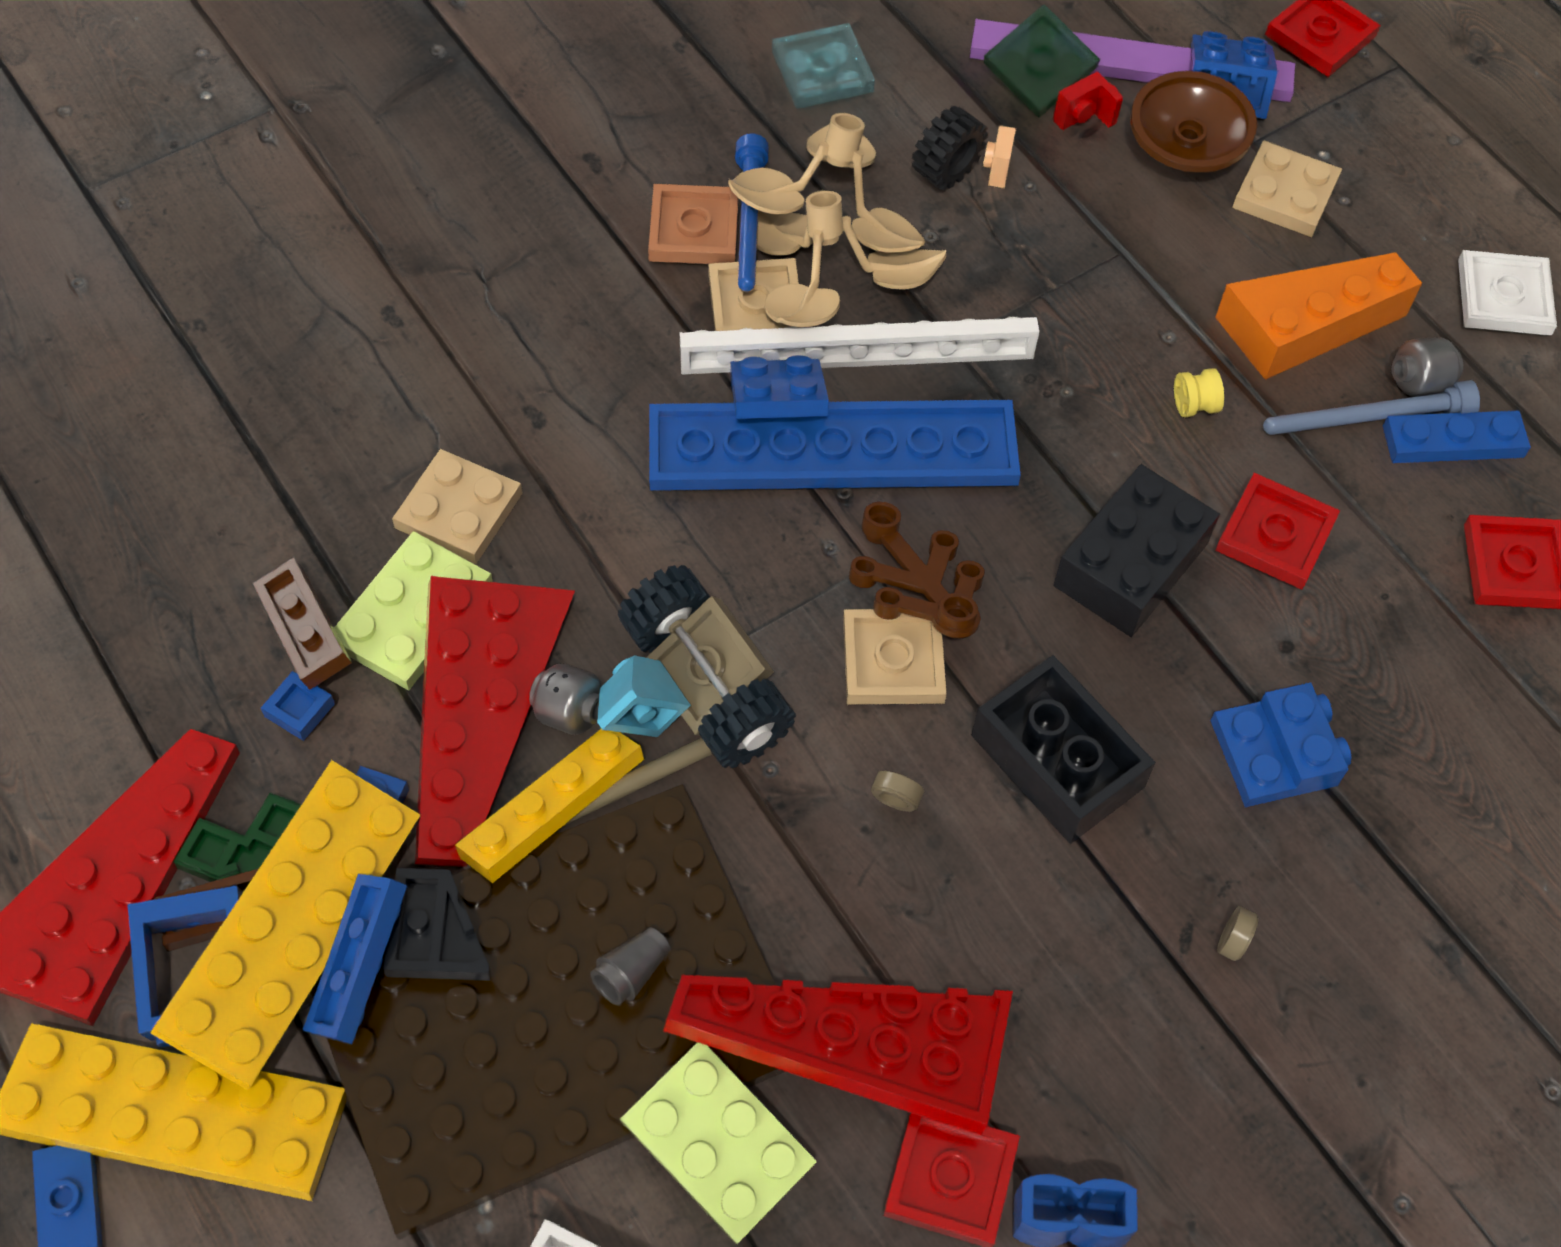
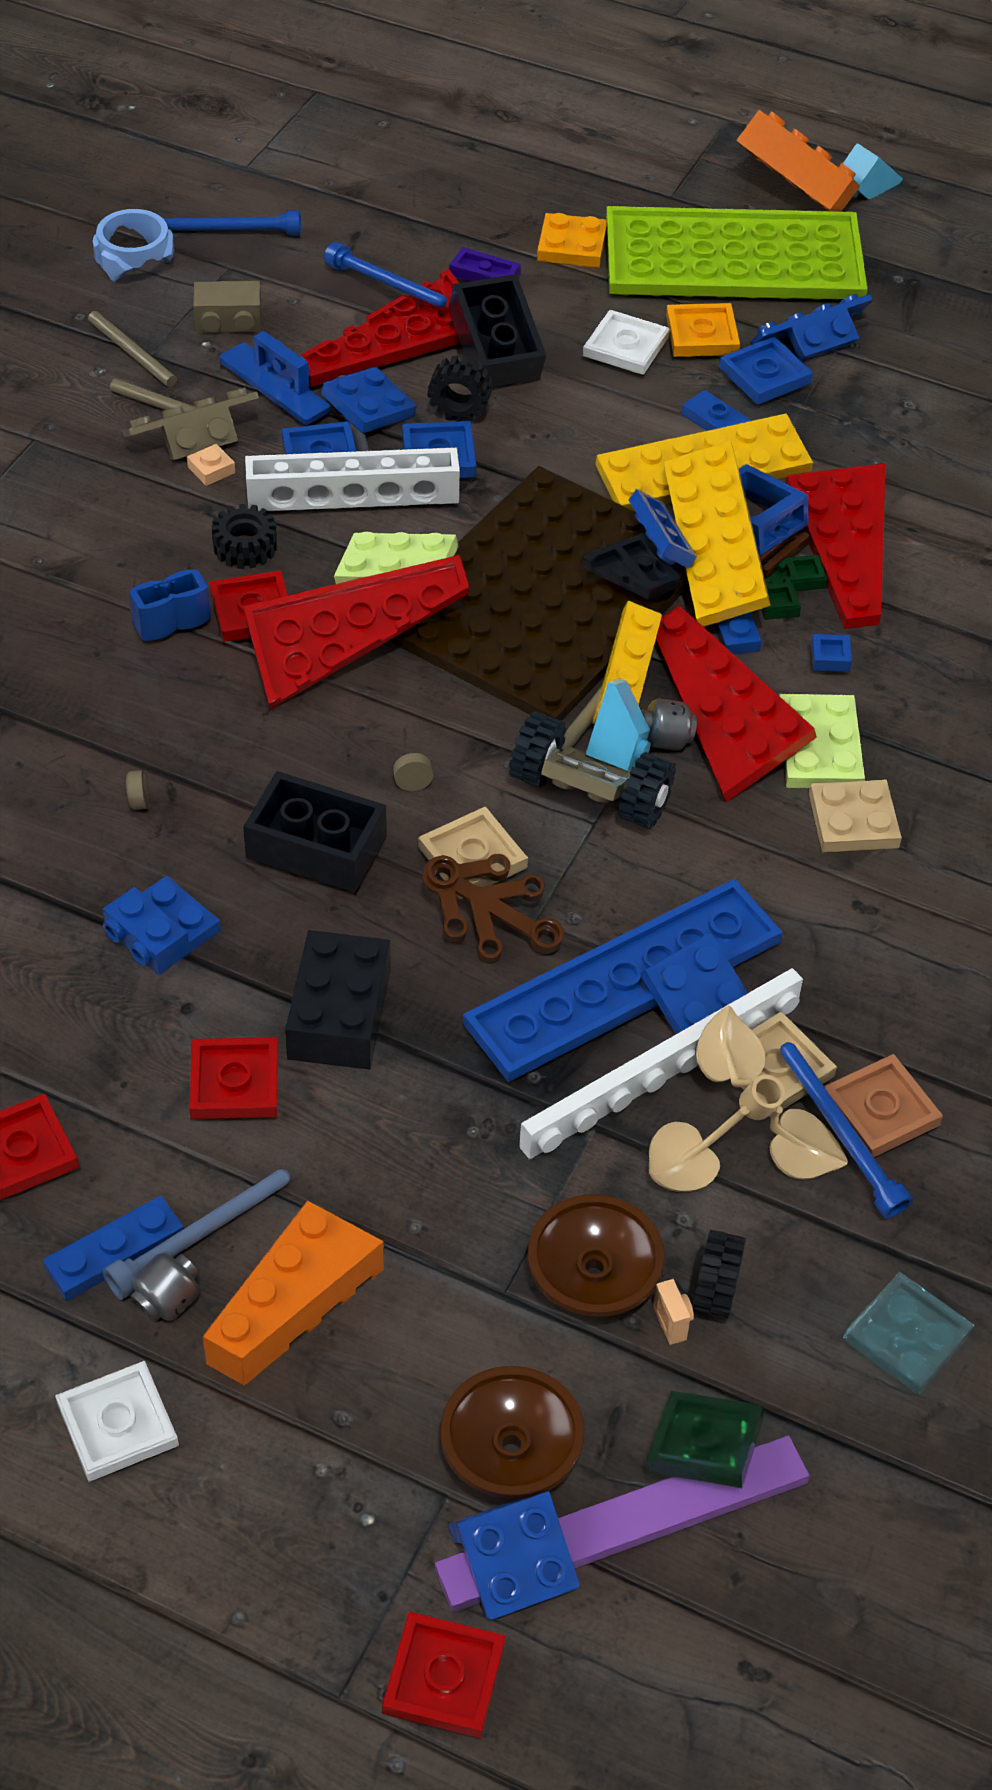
camera: 150 degrees right, 10 degrees down
(302, 623) = (873, 686): plate -> none
(629, 966) = (506, 595): flat silver cone -> none
(842, 146) = (820, 1258): tan plant -> none
(1042, 206) = (599, 1235): none -> reddish brown dish
(1086, 98) = (632, 1429): red bracket -> none
(1199, 392) = (358, 1161): light yellow wheel -> none
(1287, 188) = (384, 1443): tan plate -> none

